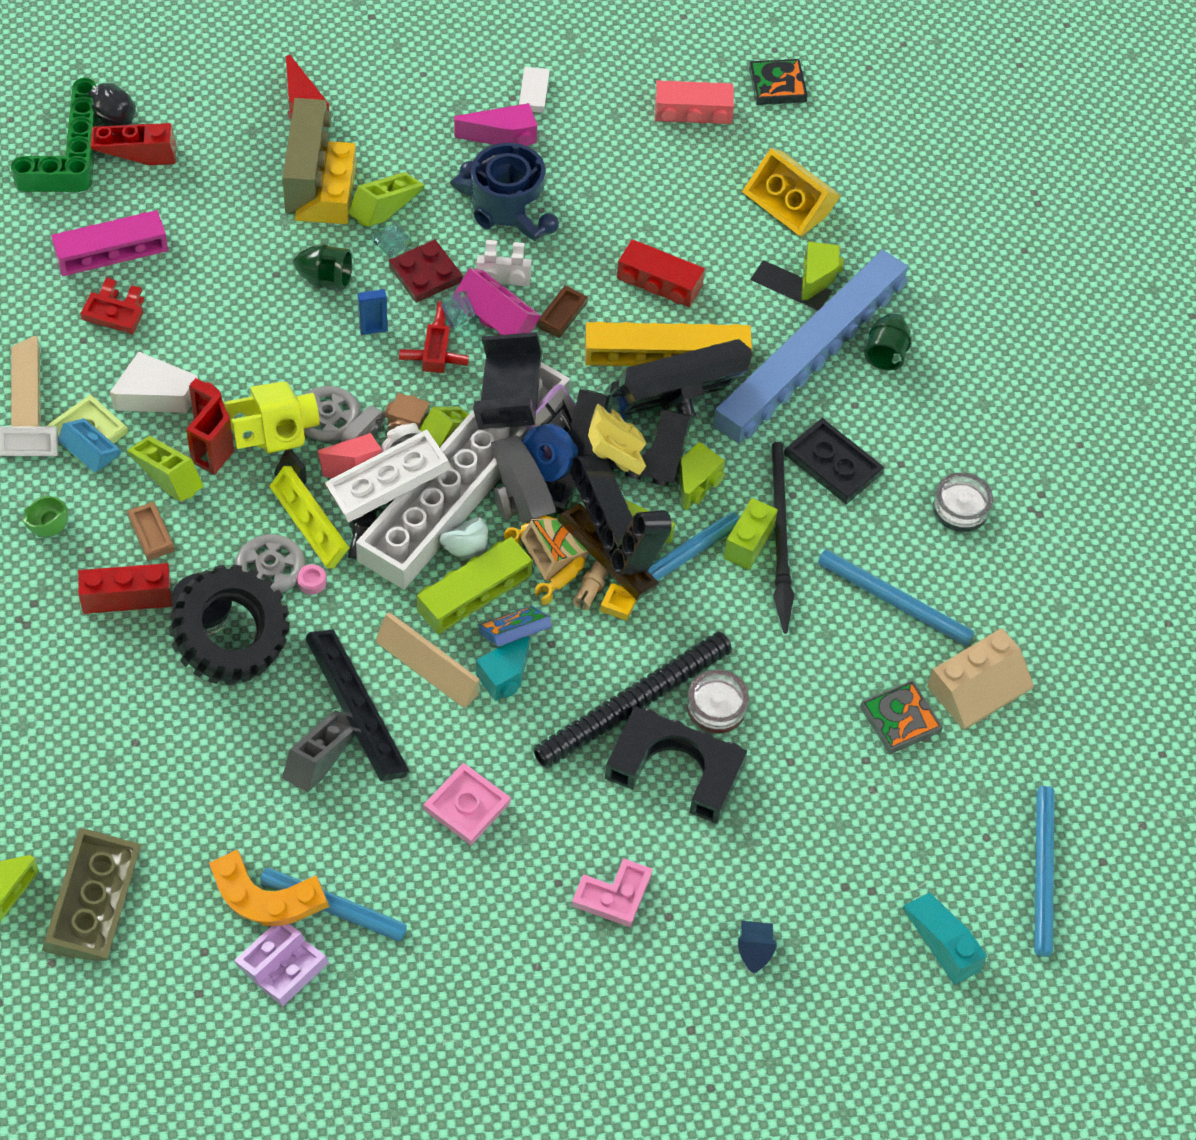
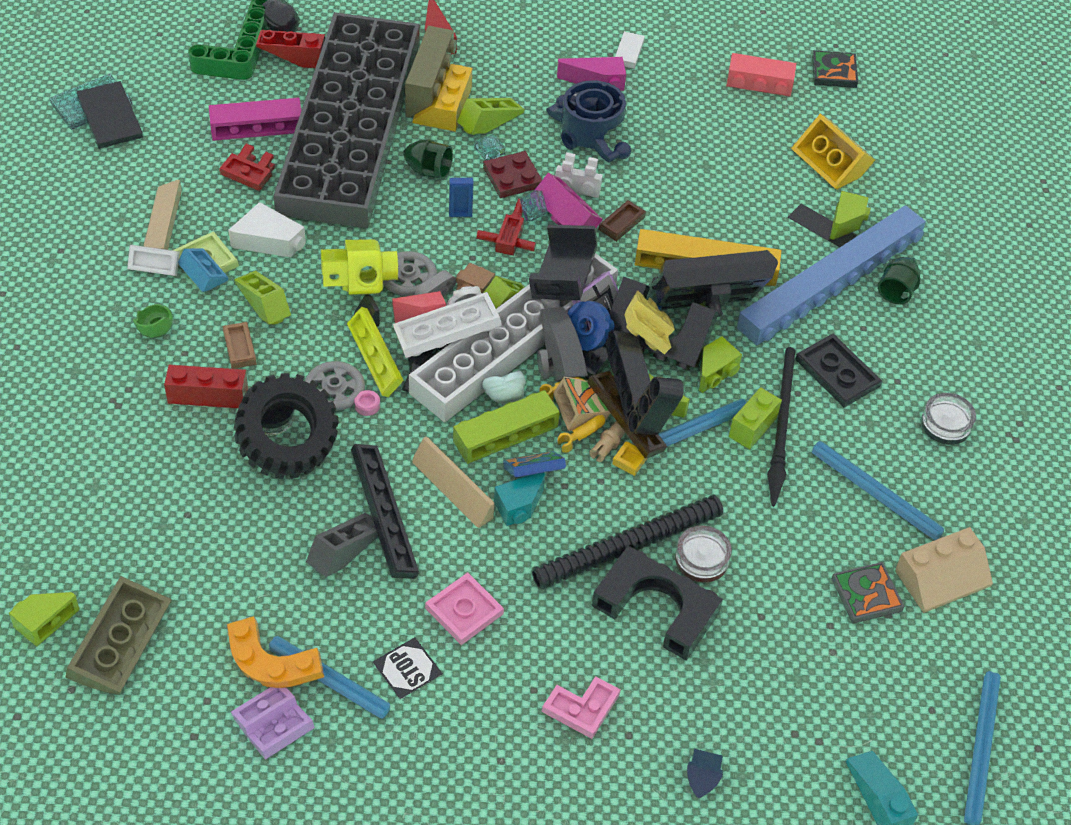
camera: 10 degrees right, 5 degrees down
(210, 428) = (304, 269): red piece -> none
(221, 229) = (348, 121): none -> dark grey brick
(416, 880) = (407, 668): none -> sticker
(660, 273) = (711, 200): red brick -> none

